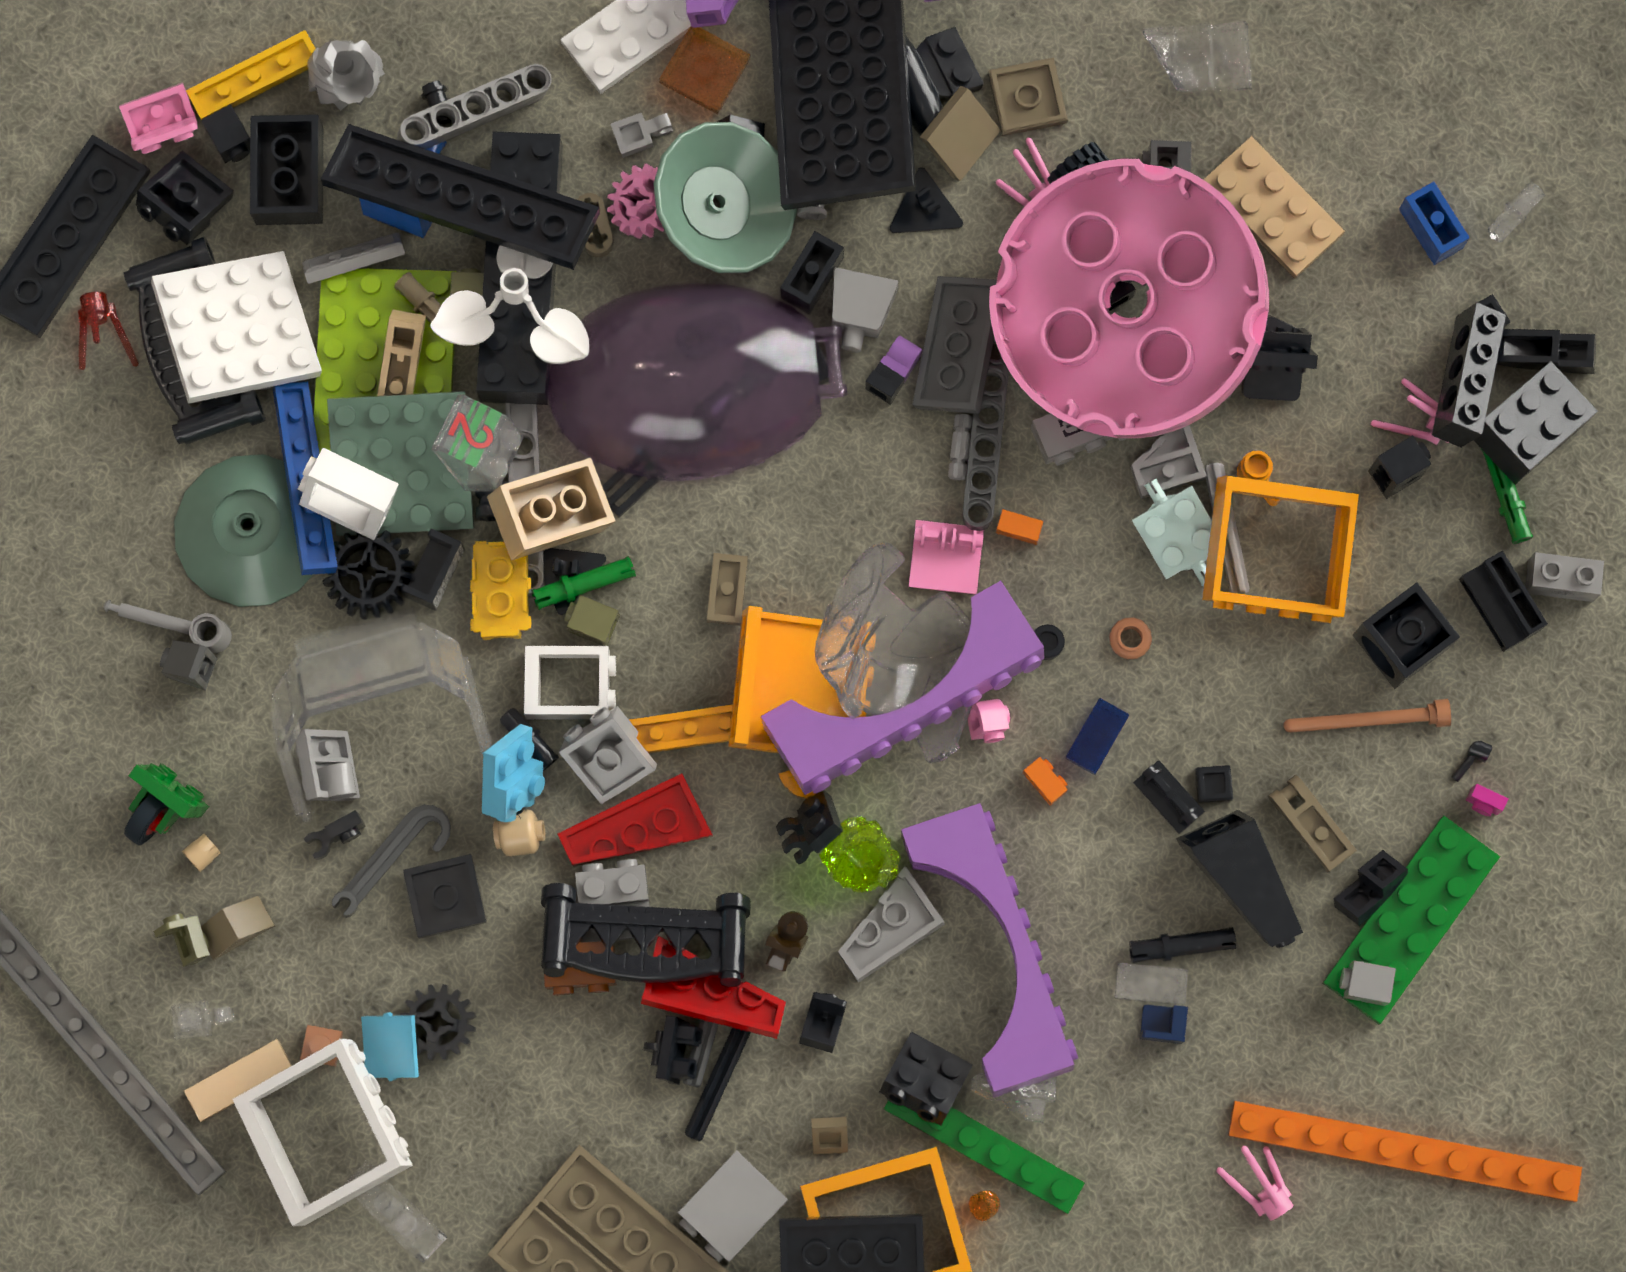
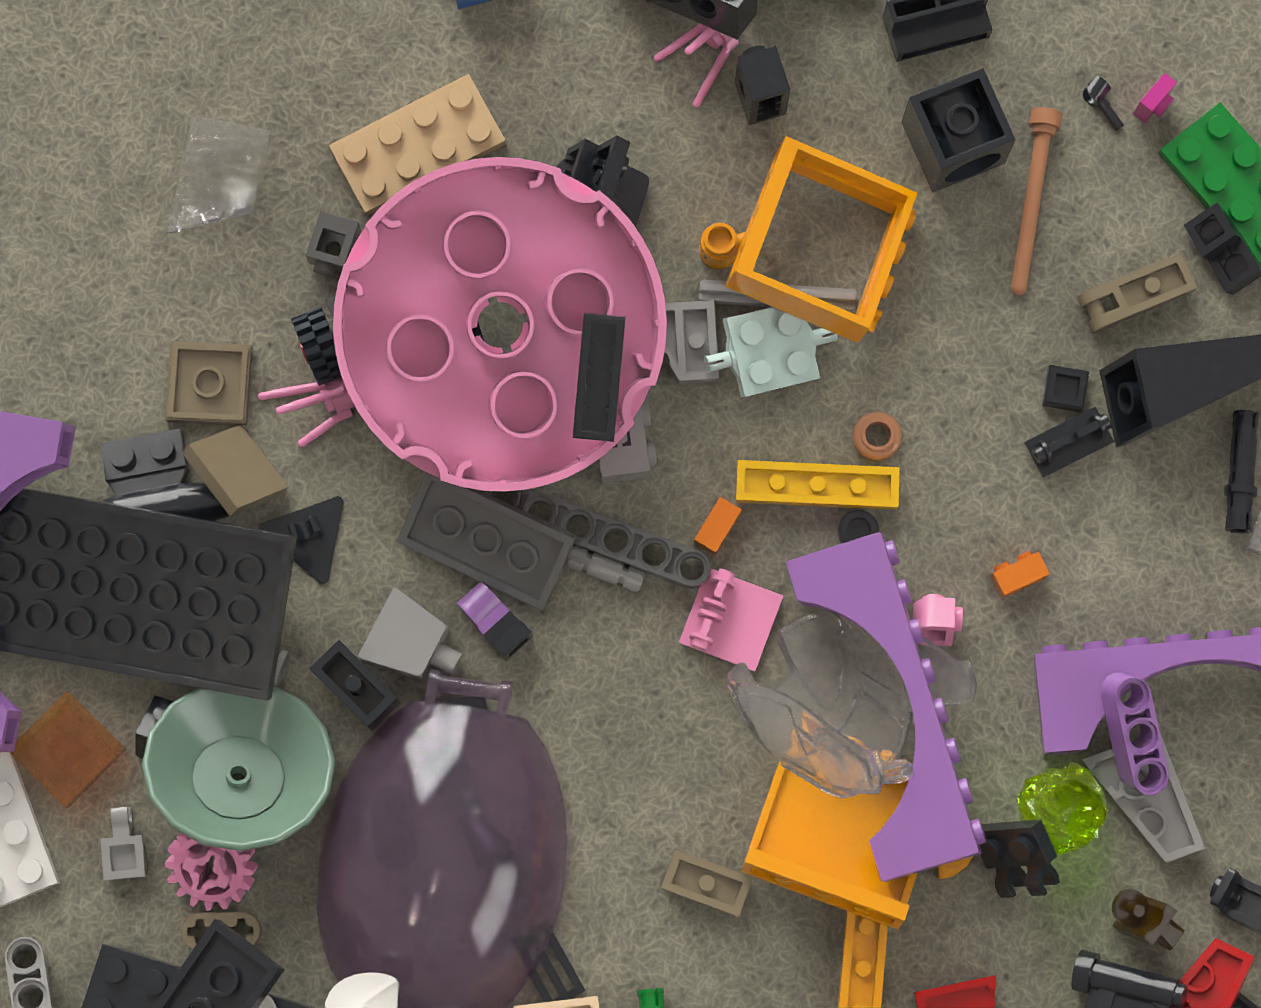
camera: 75 degrees left, 0 degrees up
(919, 902) = (1148, 746): none -> medium lavender beam
(1075, 598) = (817, 484): none -> yellow plate
(1097, 736) = (982, 502): clear blue plate -> none
(1105, 385) = (599, 377): none -> black plate

